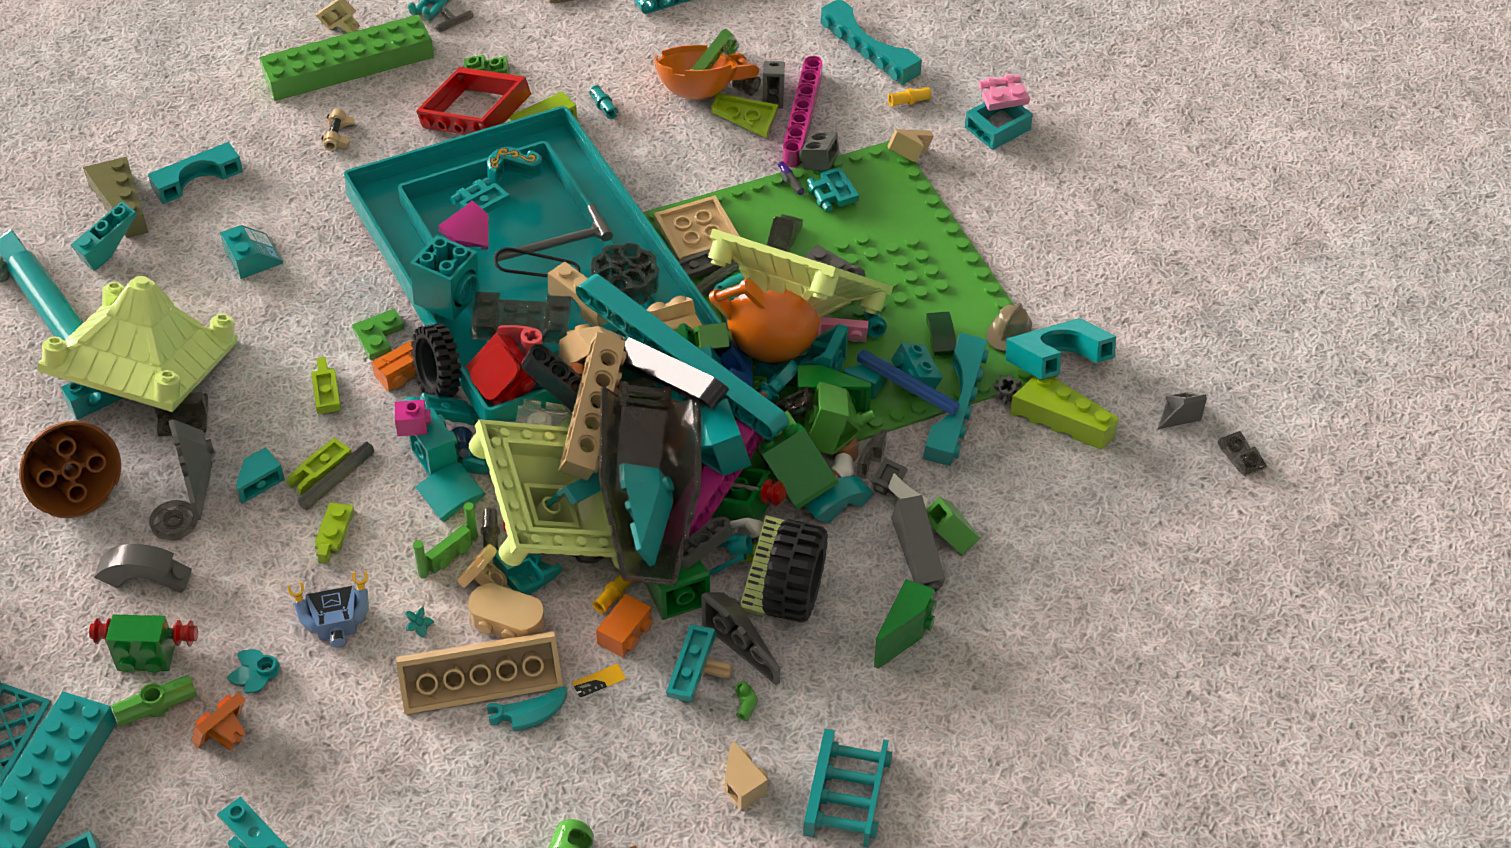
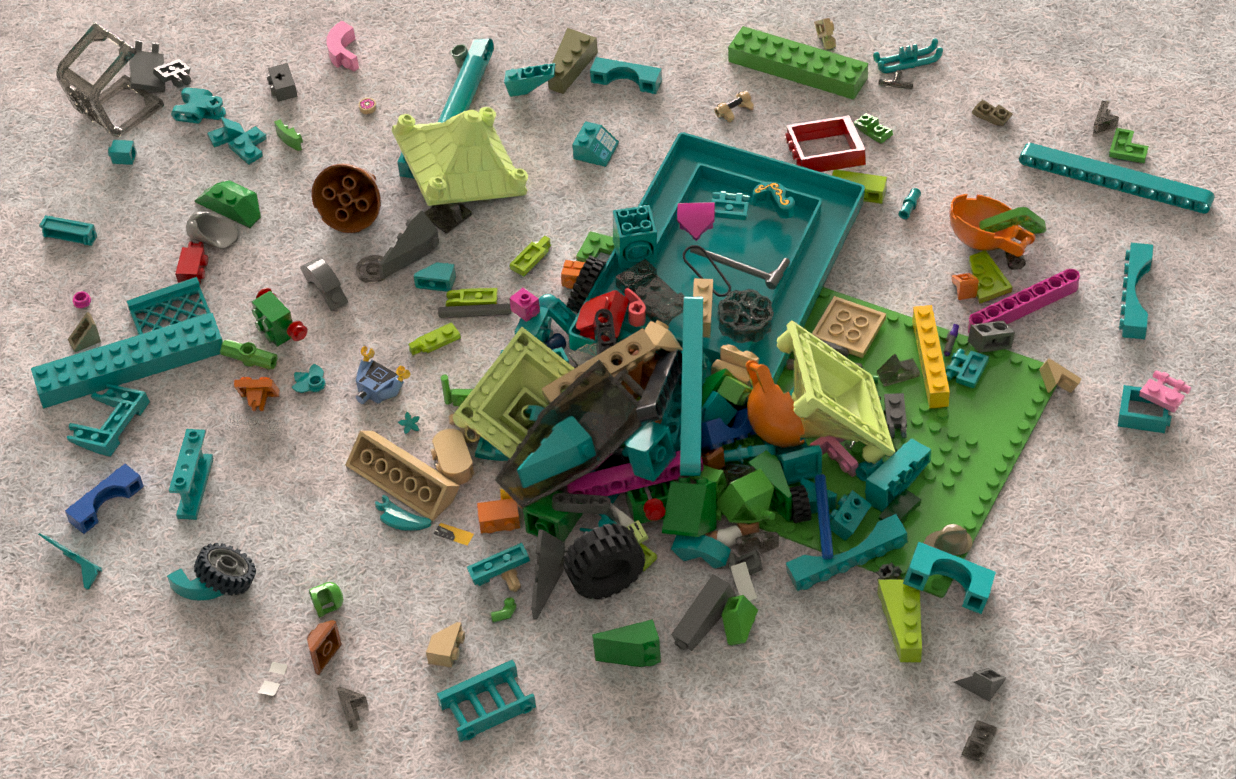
camera: 55 degrees right, 0 degrees up
(742, 127) = (966, 285): none -> orange slope
(773, 79) = (1027, 269): dark grey torso -> none
(799, 199) = (930, 356): none -> yellow brick
(880, 389) = (800, 504): none -> black tyre
(907, 307) = (896, 474): none -> teal wedge
(909, 96) = (1109, 347): yellow pin -> none

